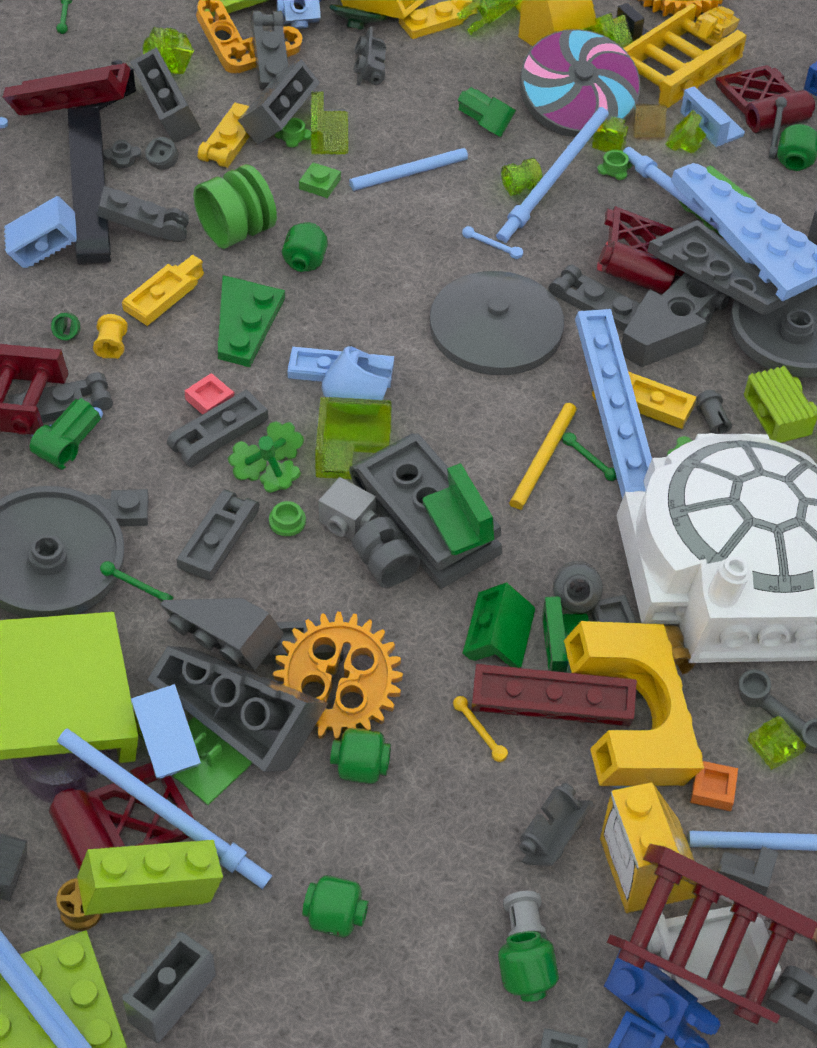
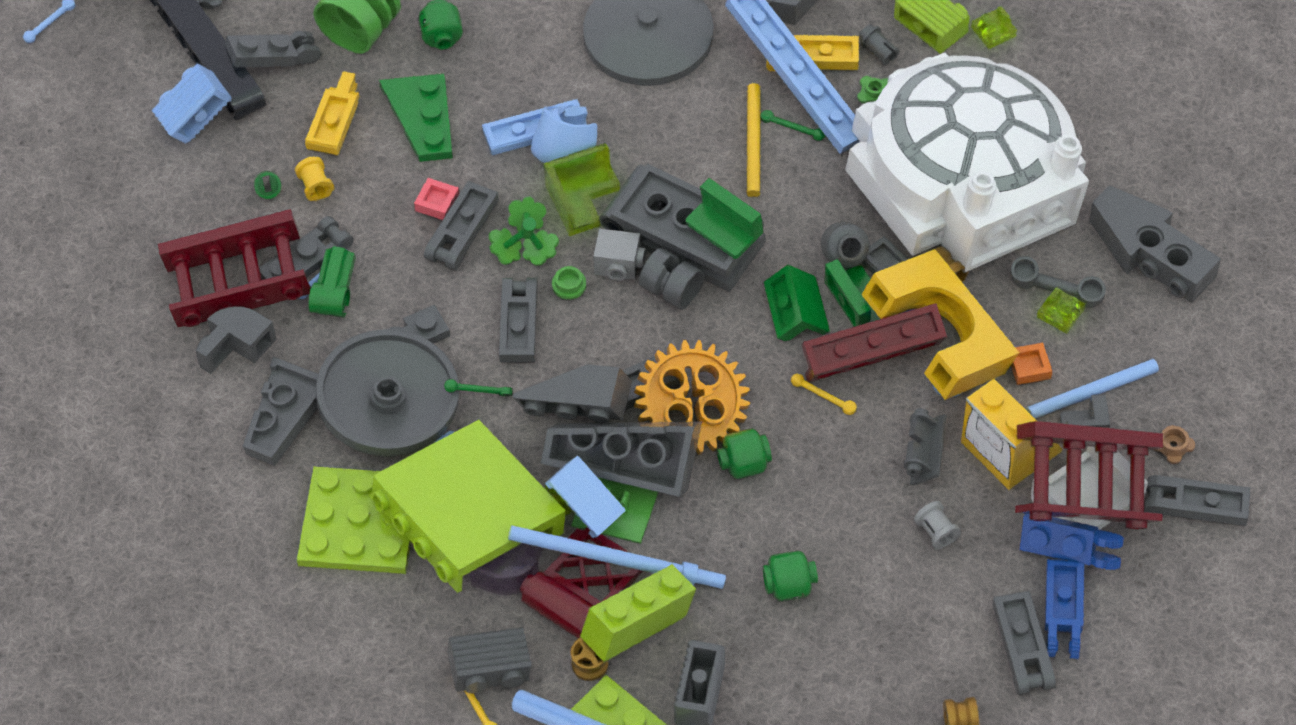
camera: 20 degrees left, 5 degrees up
(528, 965) = (959, 557): green head -> none

